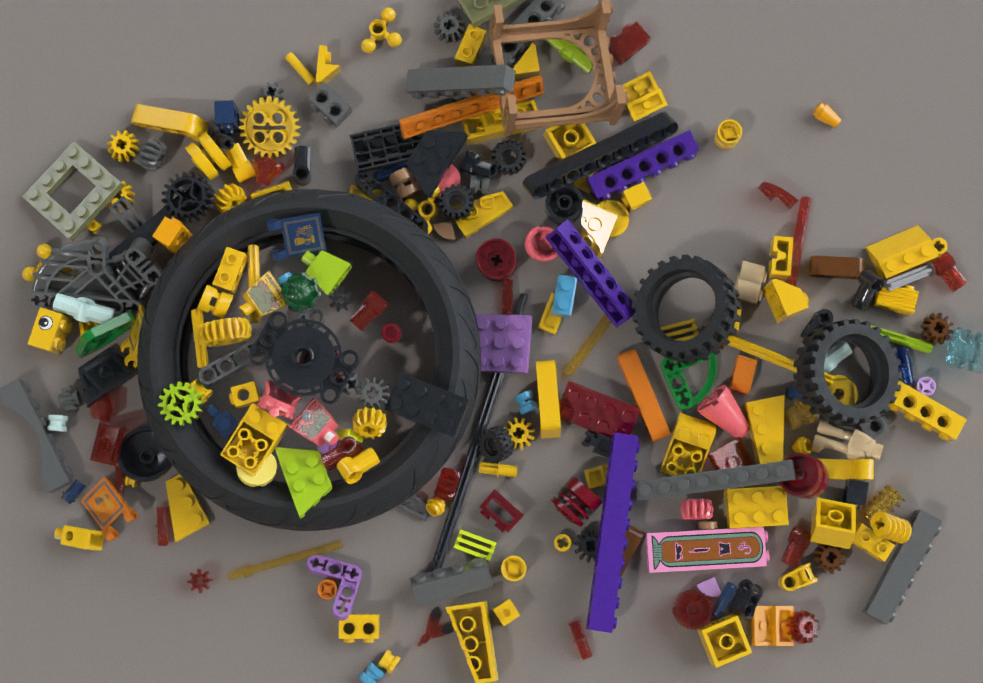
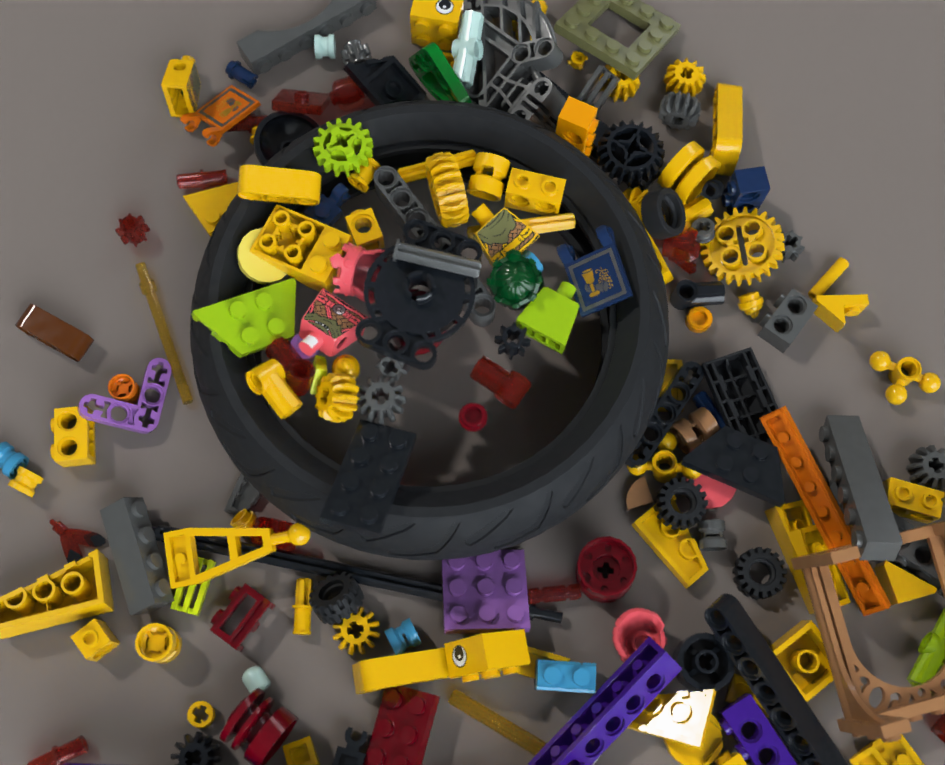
camera: 80 degrees right, 10 degrees down
(206, 451) = (279, 185): none -> yellow beam
(242, 172) = (653, 217): none -> black tyre
(248, 152) = (704, 224): none -> dark grey bush
(276, 641) = (54, 332): none -> reddish brown beam
(283, 342) = (436, 259): none -> dark grey axle
(313, 128) = (751, 303): none -> yellow plate
(320, 167) = (698, 319): none -> light orange tile
(345, 416) = (346, 364): none -> yellow plate
(455, 548) = (183, 556): none -> yellow plate
(475, 164) = (740, 527): black piece -> none
(544, 504) = (255, 678): none -> light aqua piece
(546, 345) = (487, 655): none -> yellow brick

